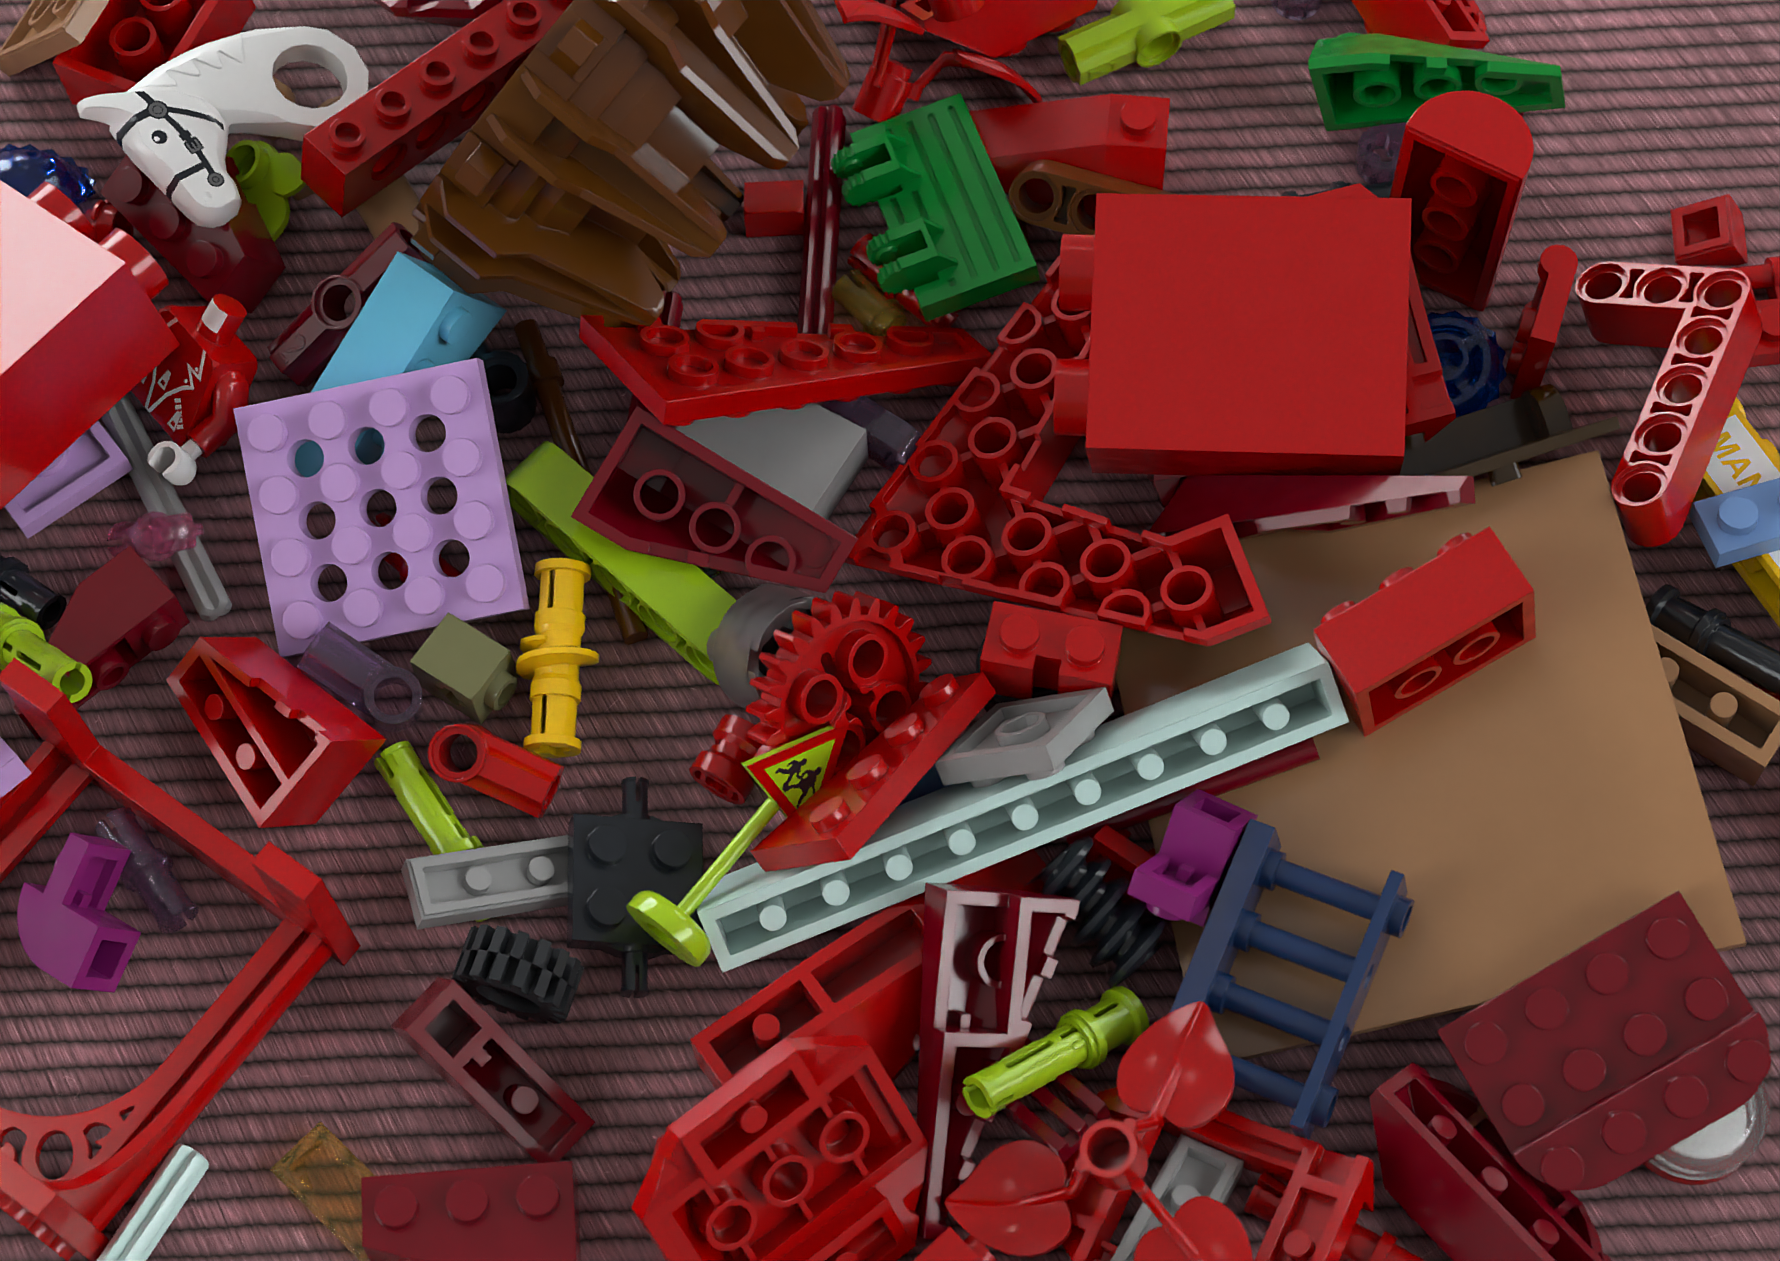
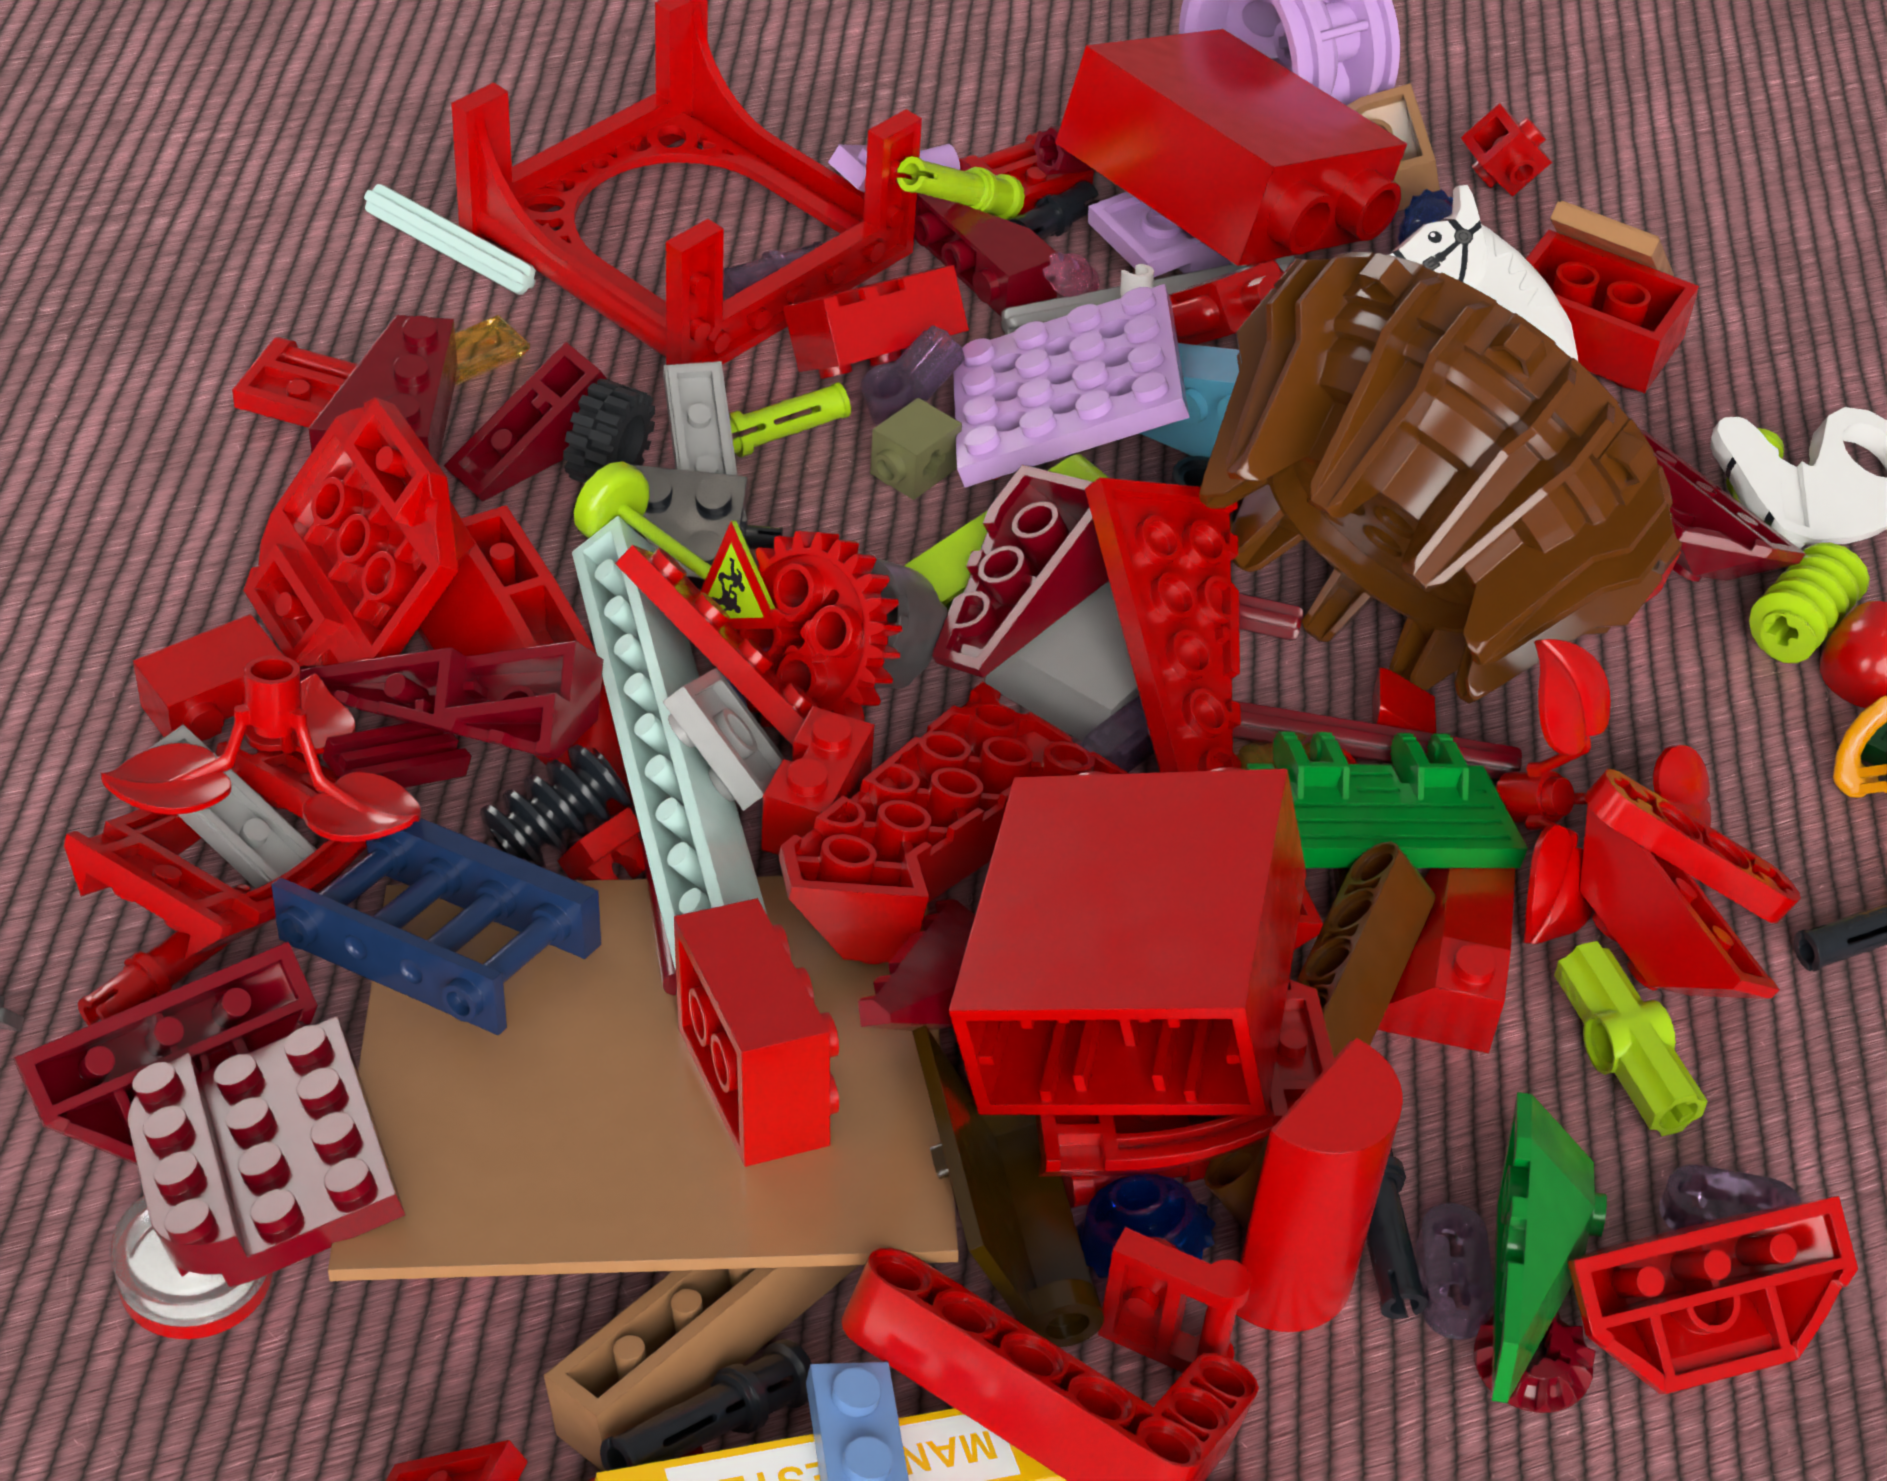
camera: 90 degrees right, 20 degrees down
(67, 922) = (746, 212): magenta brick -> none
(499, 770) = (822, 448): red piece -> none
(555, 657) = (905, 498): yellow piece -> none
(1078, 1041) = (430, 775): lime pin -> none
(1193, 858) = (553, 836): magenta brick -> none

